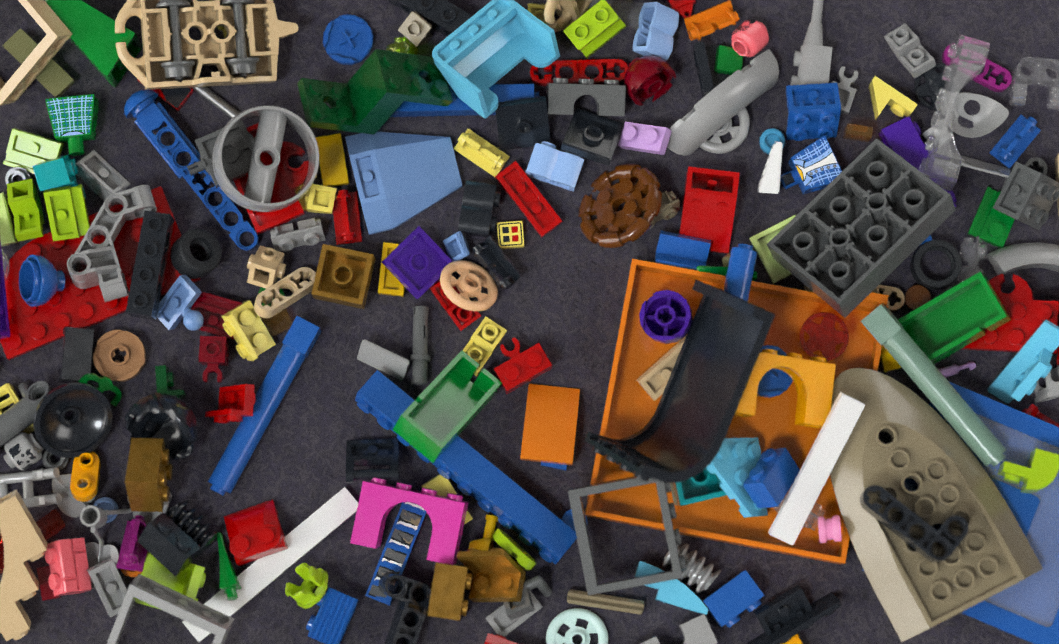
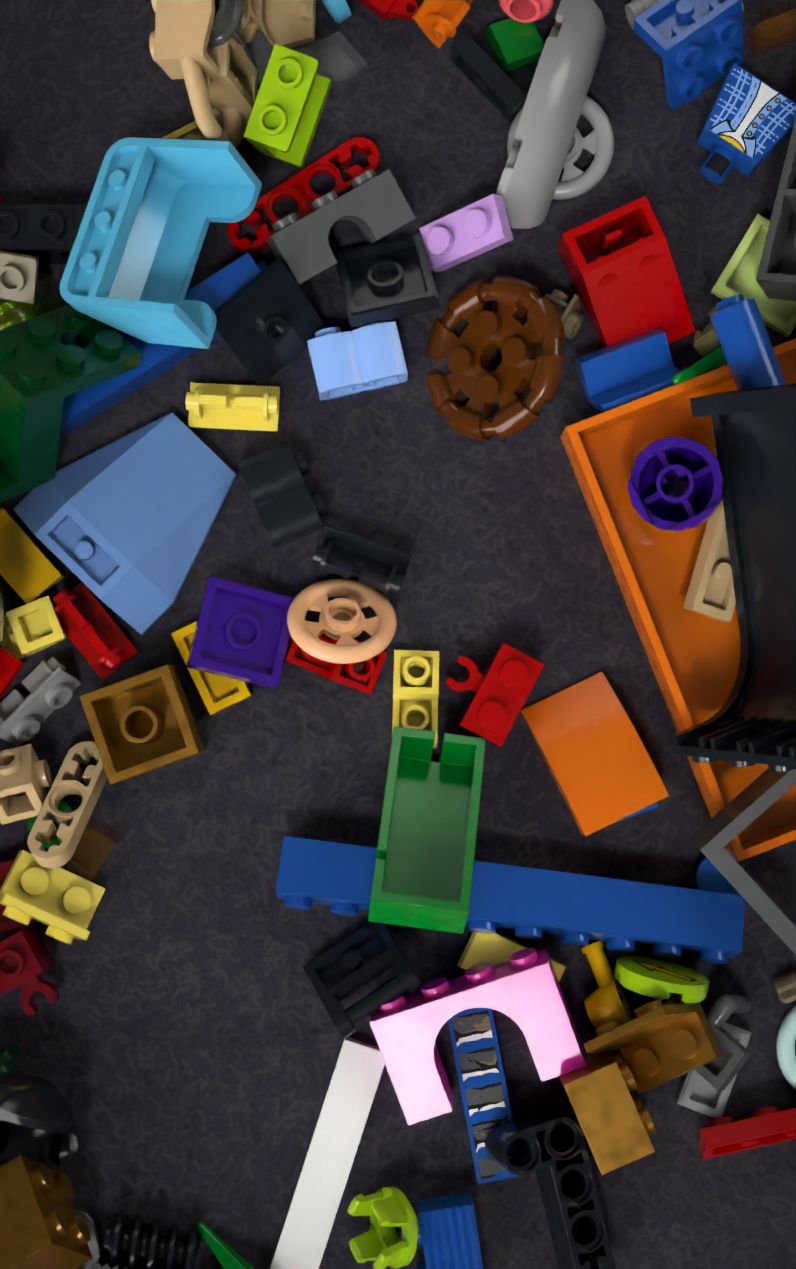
camera: 30 degrees left, 5 degrees up
(234, 404) = (101, 1024): red bracket -> none
(249, 432) = (139, 877): blue brick -> none
(255, 532) = (252, 1194): red slope -> none
(383, 359) = (282, 810): light grey slope -> none
(420, 346) = (324, 755): dark grey pin -> none
(456, 246) = (286, 572): medium blue slope -> none
(510, 234) = (354, 503): tile -> none
(528, 199) = (348, 433): red plate -> none
(648, 73) = (412, 131): dark red cylinder -> none
(656, 30) = (381, 60): light blue brick -> none
(769, 137) = (655, 125): dark azure tile -> none
(771, 174) = (688, 170): white slope -> none

